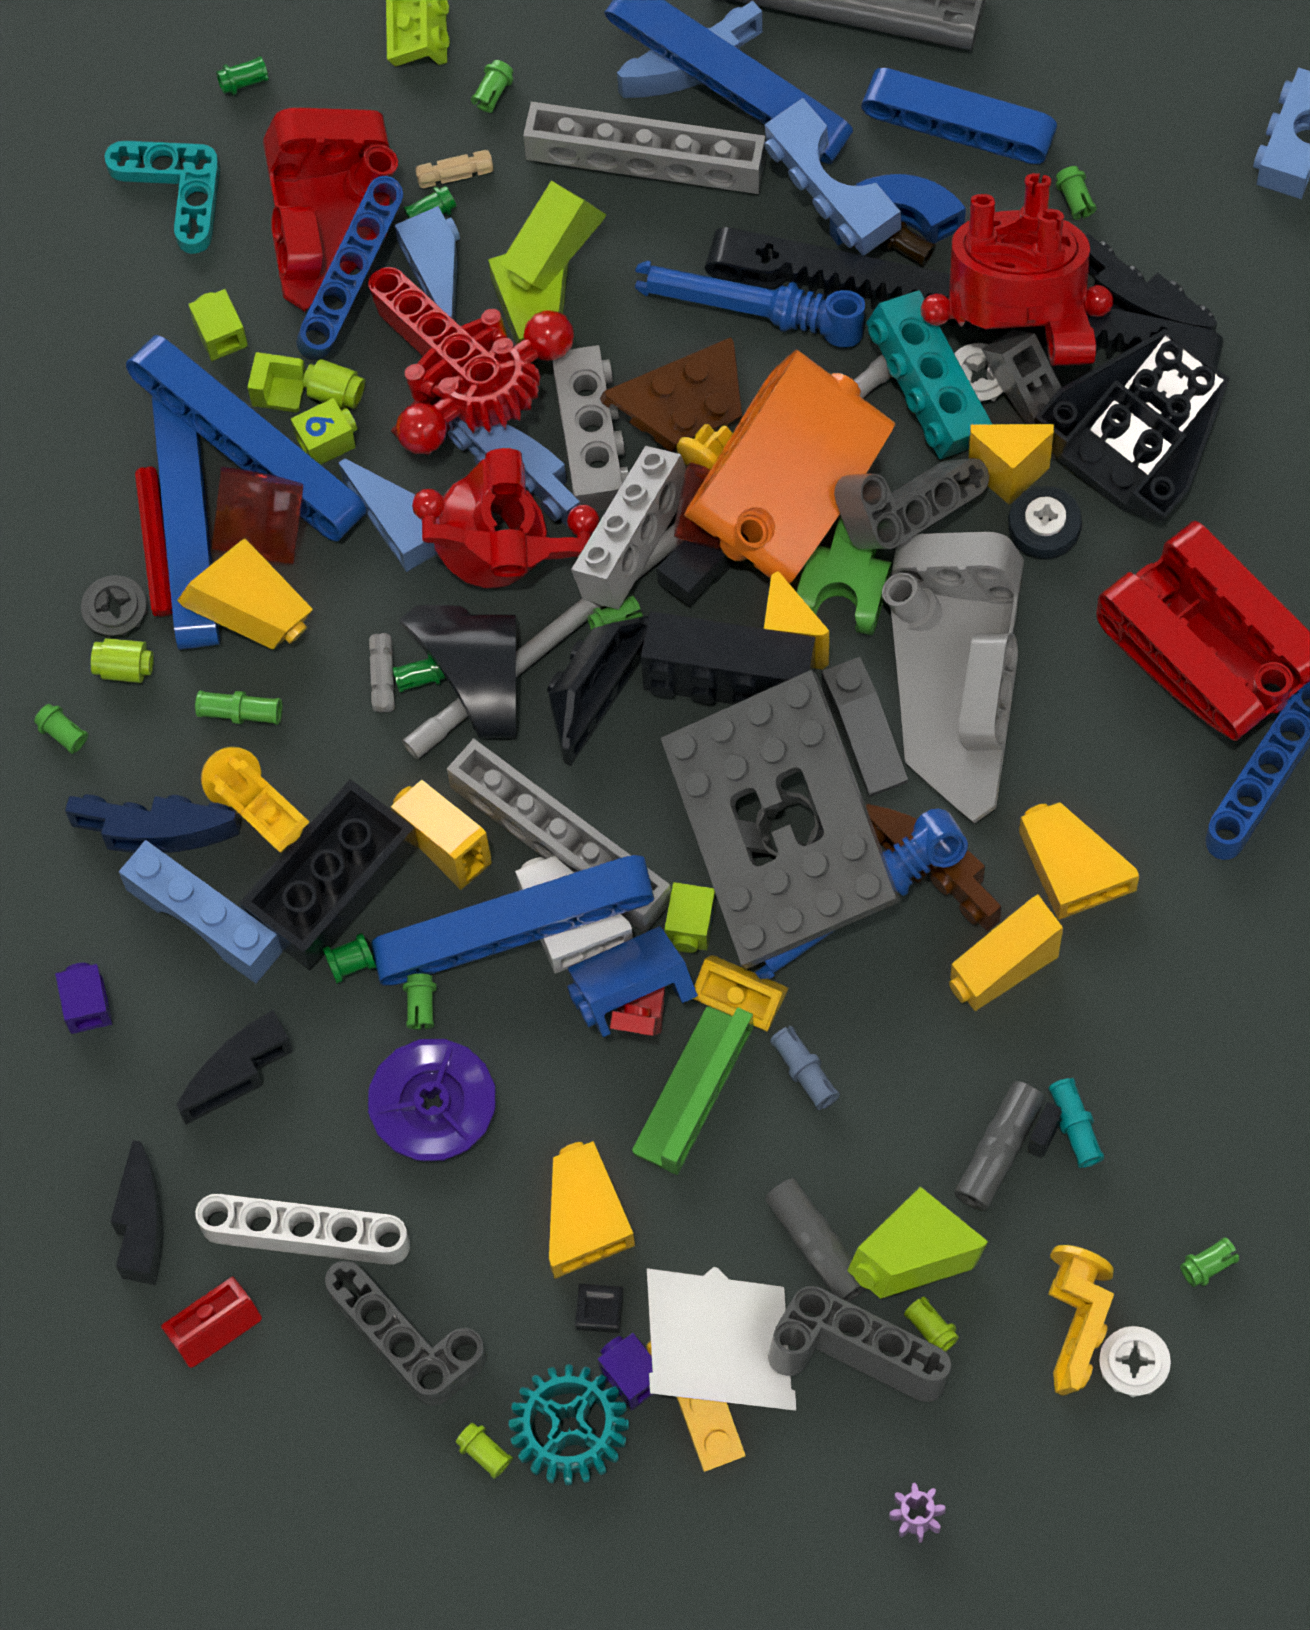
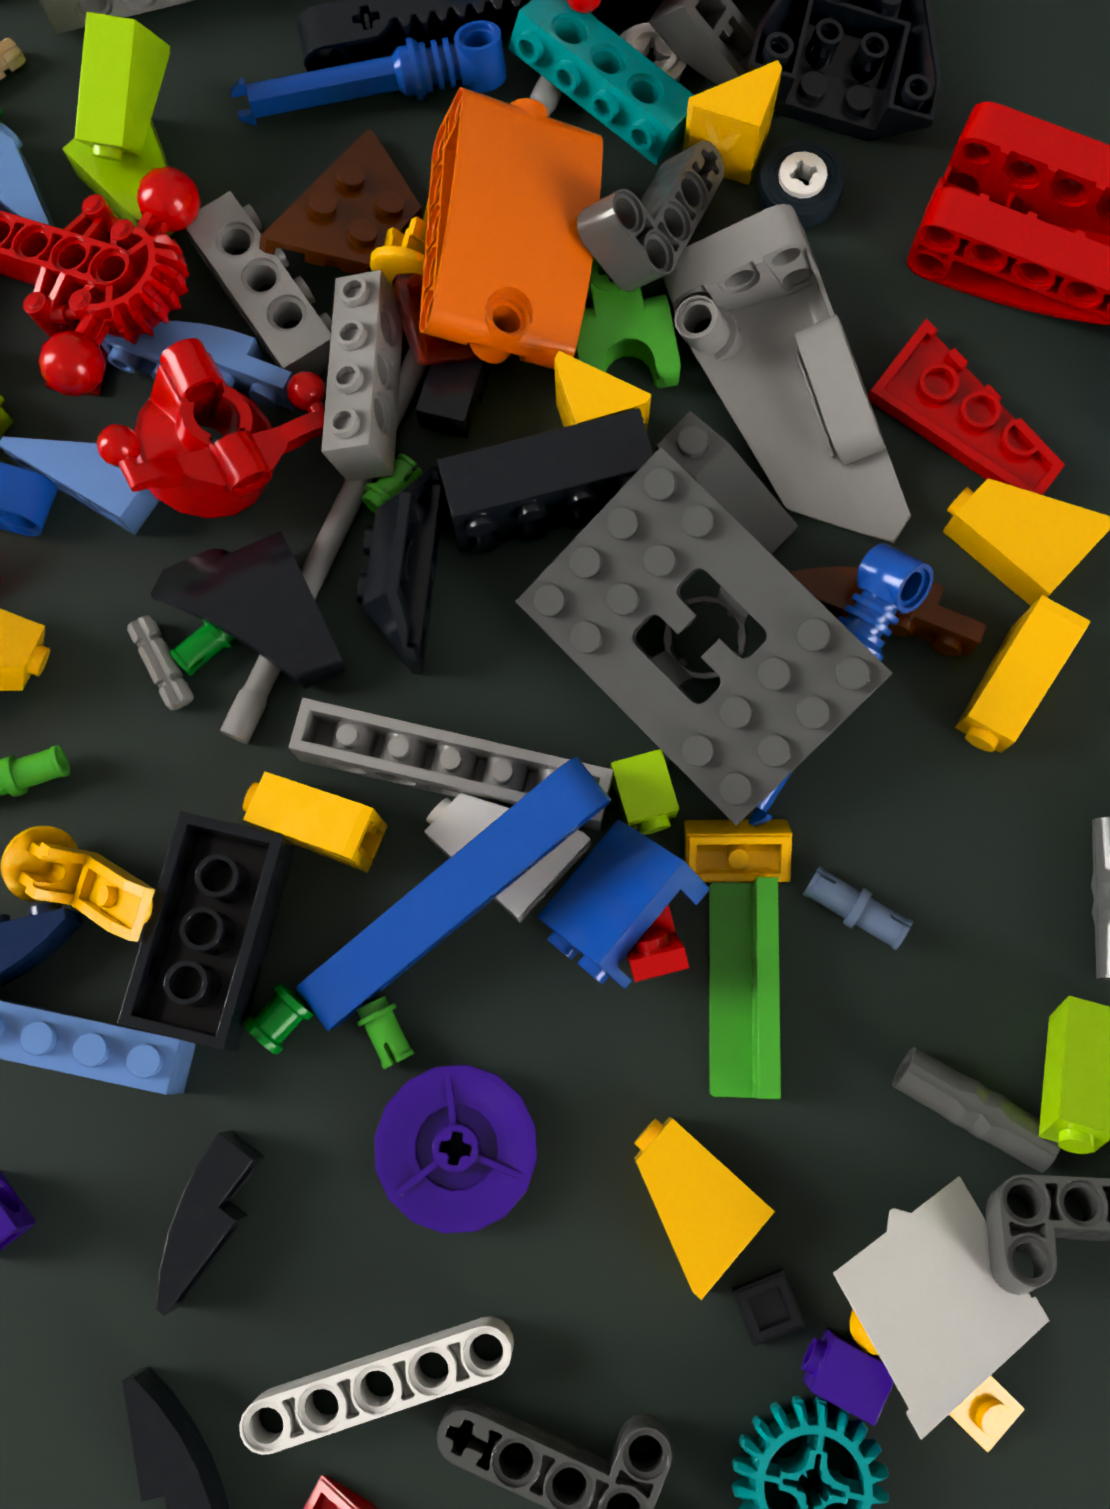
camera: 25 degrees left, 10 degrees up
(1071, 743) = (953, 410): none -> red wing

